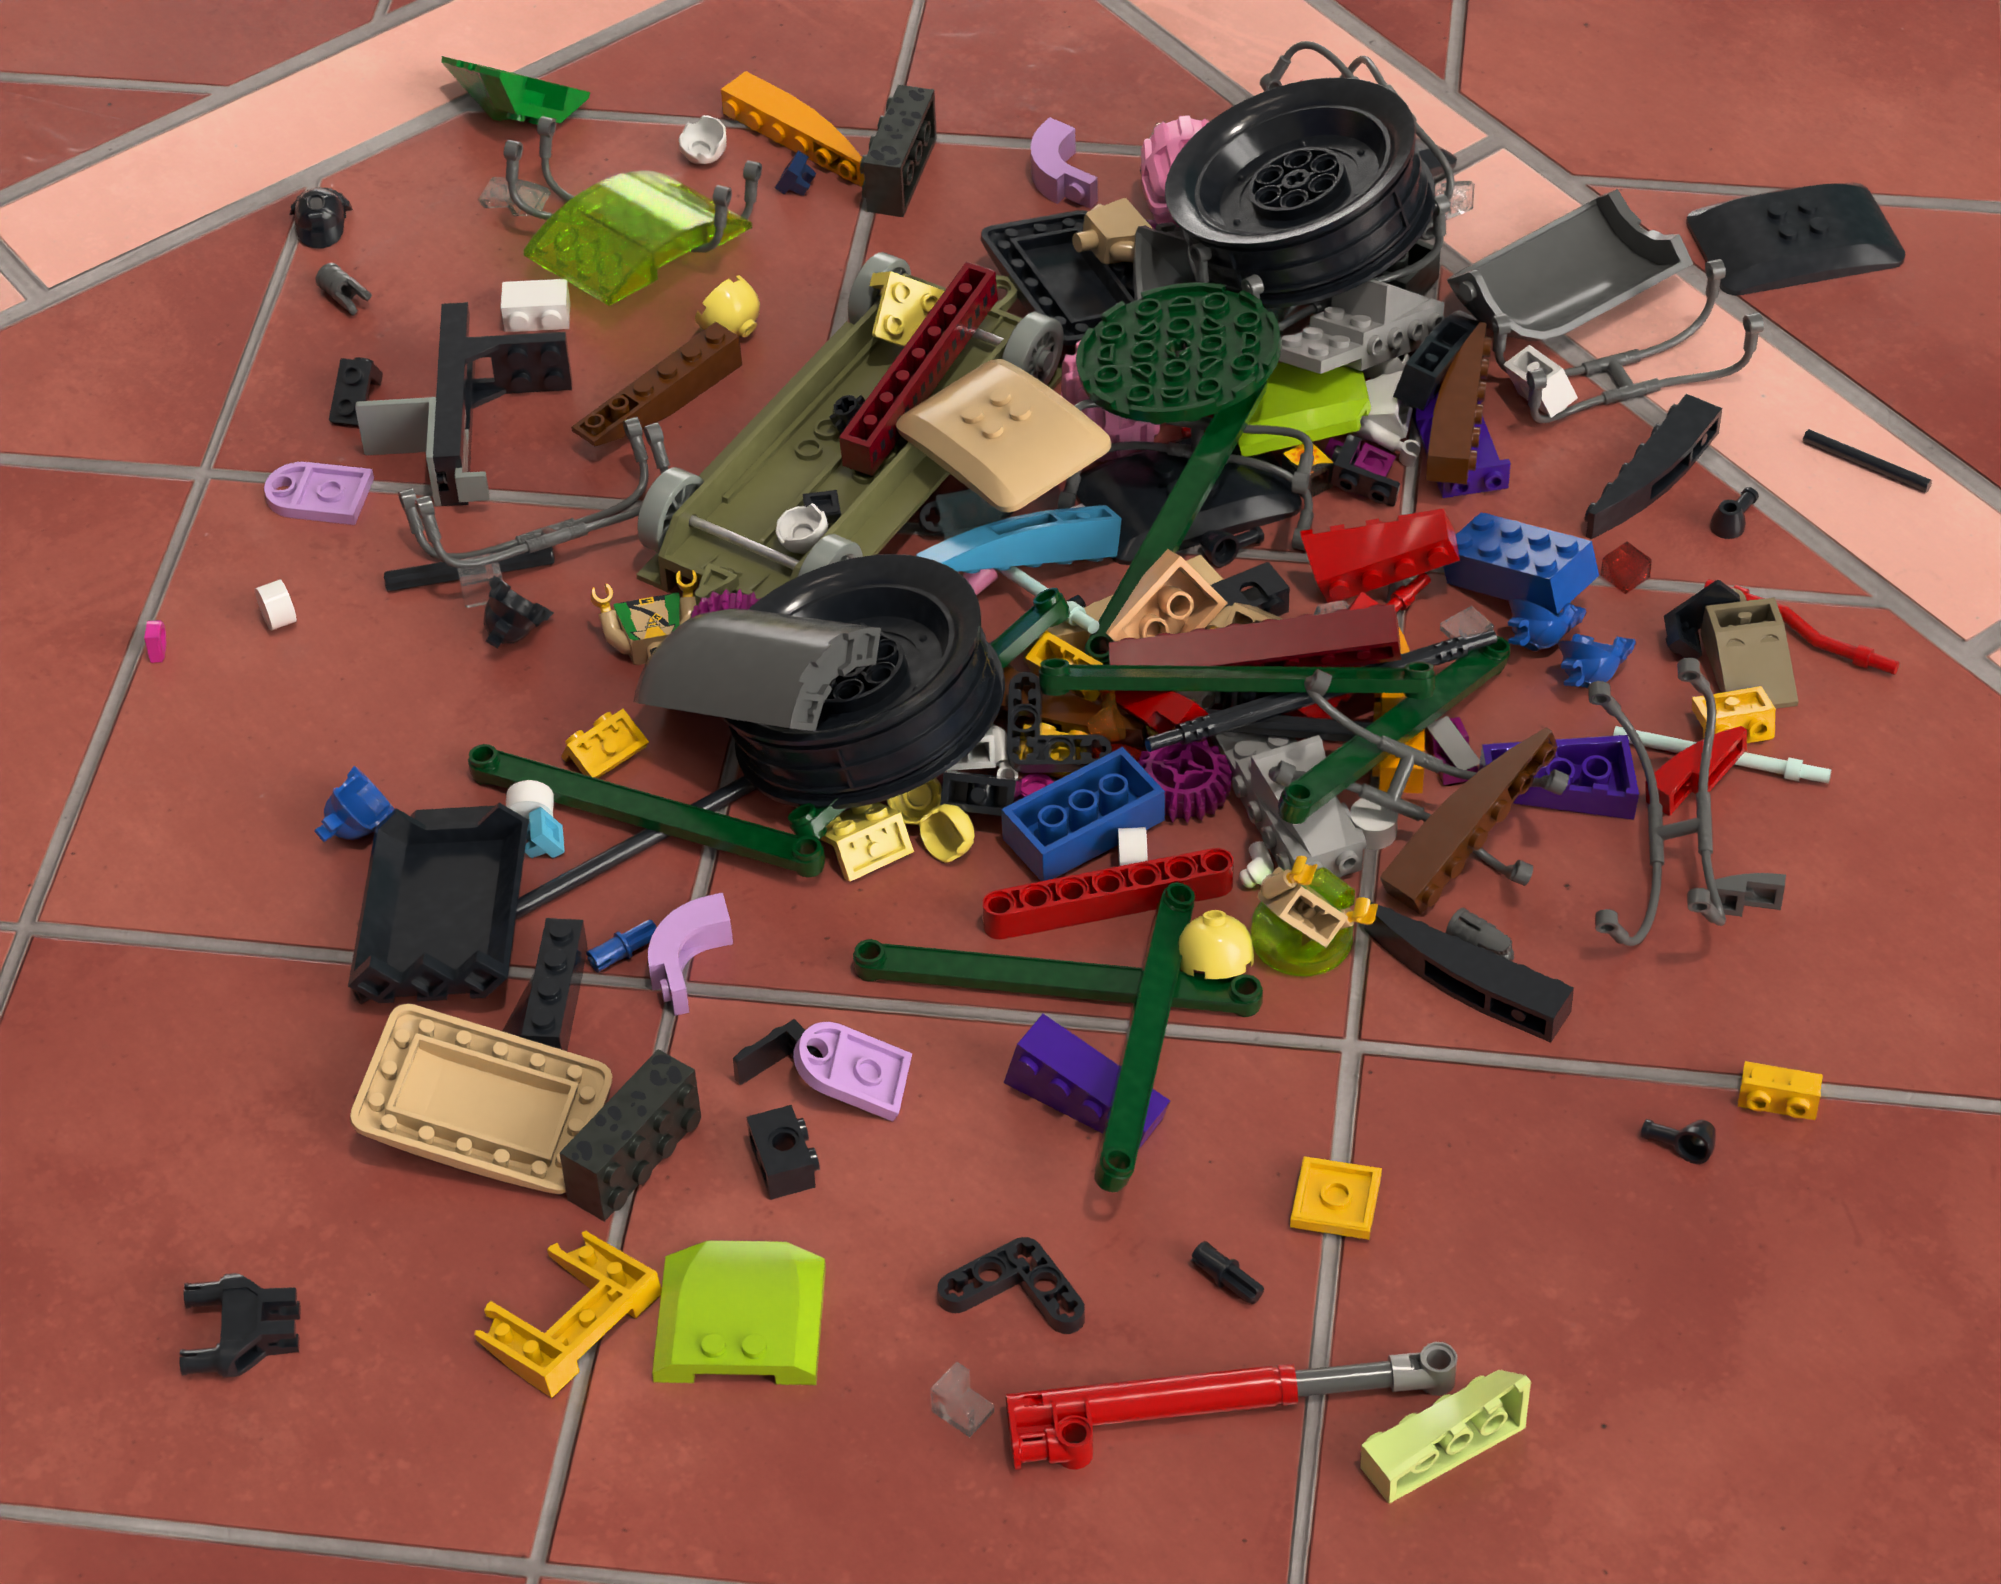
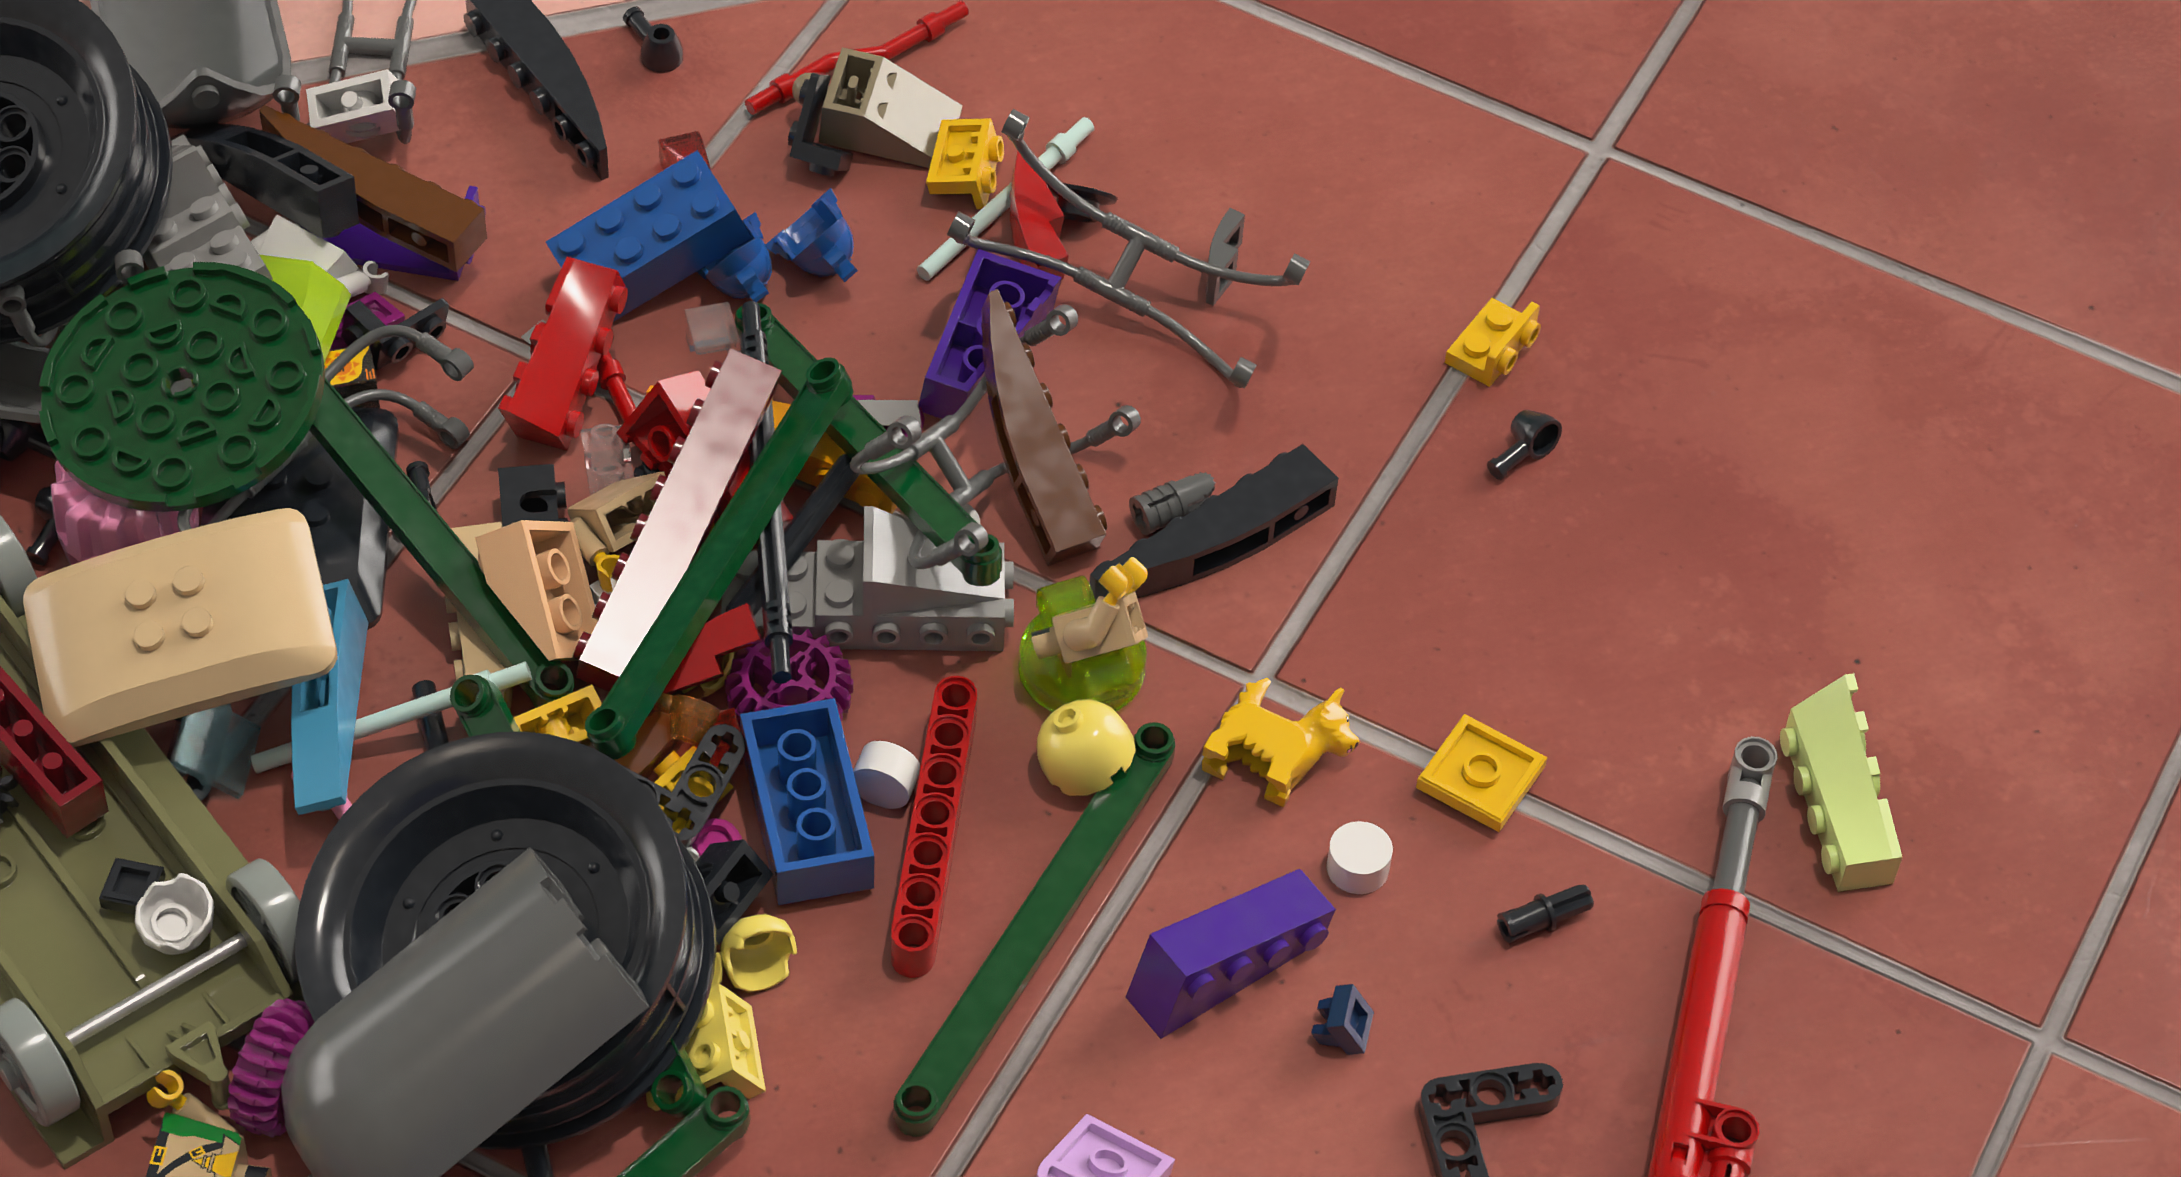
camera: 75 degrees left, 5 degrees up
(1063, 1176) = (1347, 1020): none -> dark blue tile
(1144, 1040) = (1407, 941): dark green piece -> none
(1214, 1144) = (1359, 857): none -> white piece
(1259, 866) = (957, 662): white arm -> none
(1284, 1062) = (1274, 745): none -> yellow animal
(1737, 790) = (1091, 195): none -> black piece

